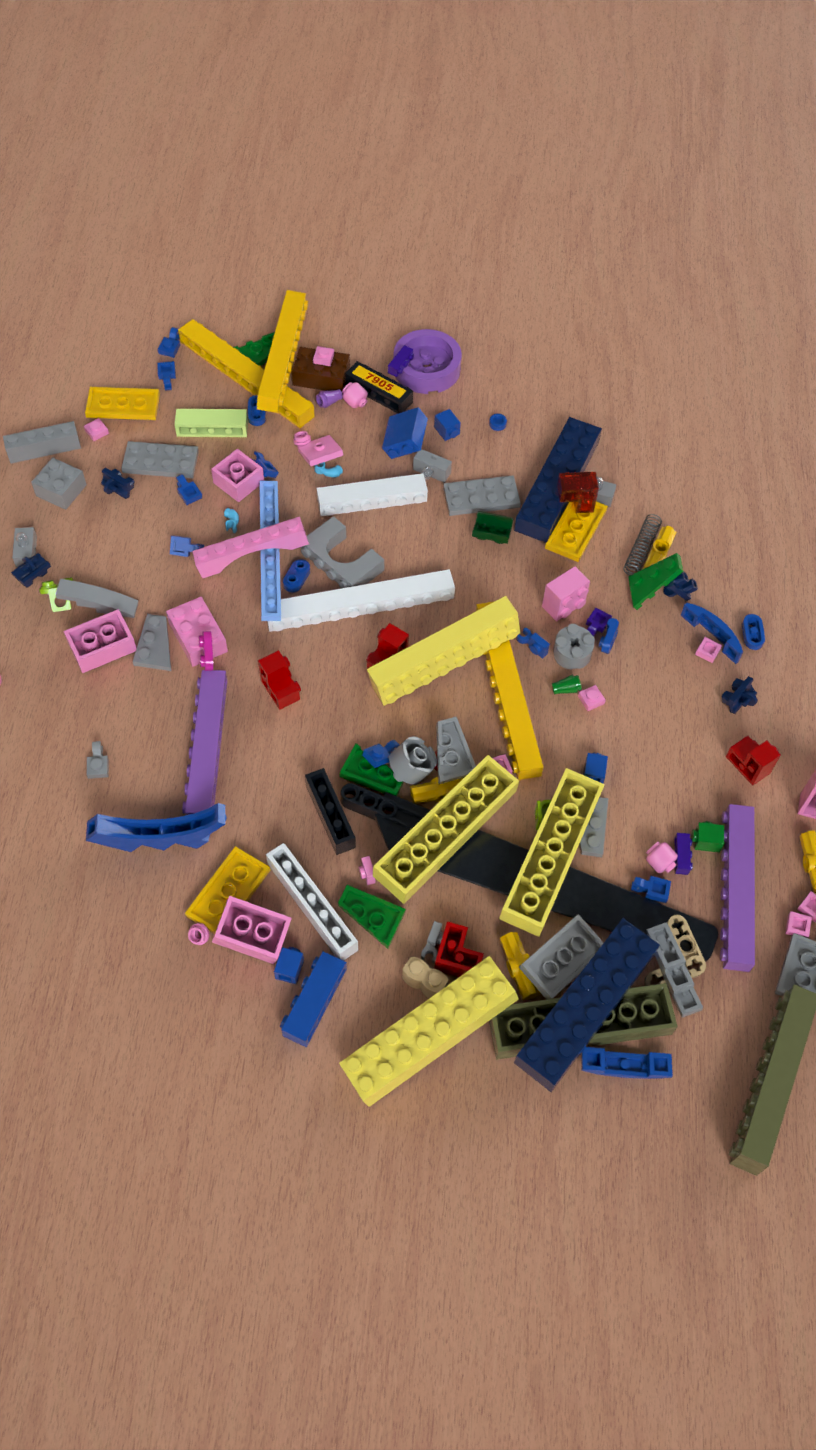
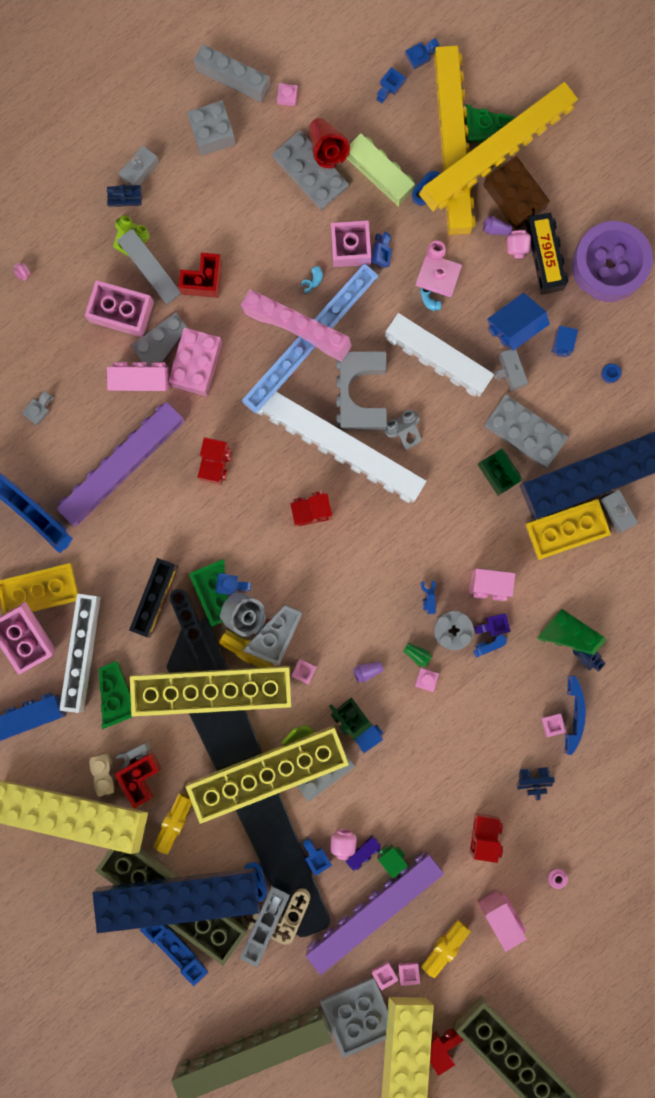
camera: 50 degrees right, 25 degrees up
(116, 483) = (252, 167): dark blue hips -> none
(122, 403) = (328, 85): yellow plate -> none
(149, 574) = (205, 281): none -> red brick
(158, 428) = (328, 144): none -> red cone
(163, 669) = (138, 376): none -> bright pink brick
(182, 546) = (253, 275): plate -> none
(188, 491) = (303, 223): blue plate -> none
(206, 659) = (183, 385): dark pink plate -> none
(289, 965) = (29, 681): blue brick -> none
(297, 574) = (316, 378): blue plate -> none
(323, 356) = (522, 186): bright pink plate -> none
(366, 870) = (139, 663): bright pink plate -> none
(395, 552) = (404, 425): none -> light grey bracket
(400, 361) = (582, 248): dark purple piece -> none
(444, 651) = (347, 551): light yellow brick -> none
(513, 710) = (374, 614): yellow brick -> none
(544, 727) = (364, 672): none -> medium lavender cone
(562, 957) = (203, 848): light grey plate -> none
(574, 759) = (351, 718): none -> dark green bracket
(579, 488) = (592, 506): clear red brick -> none
(657, 526) = (604, 593): dark grey piece -> none
(661, 546) = (619, 607): yellow piece -> none
(753, 633) = (605, 745): blue plate -> none

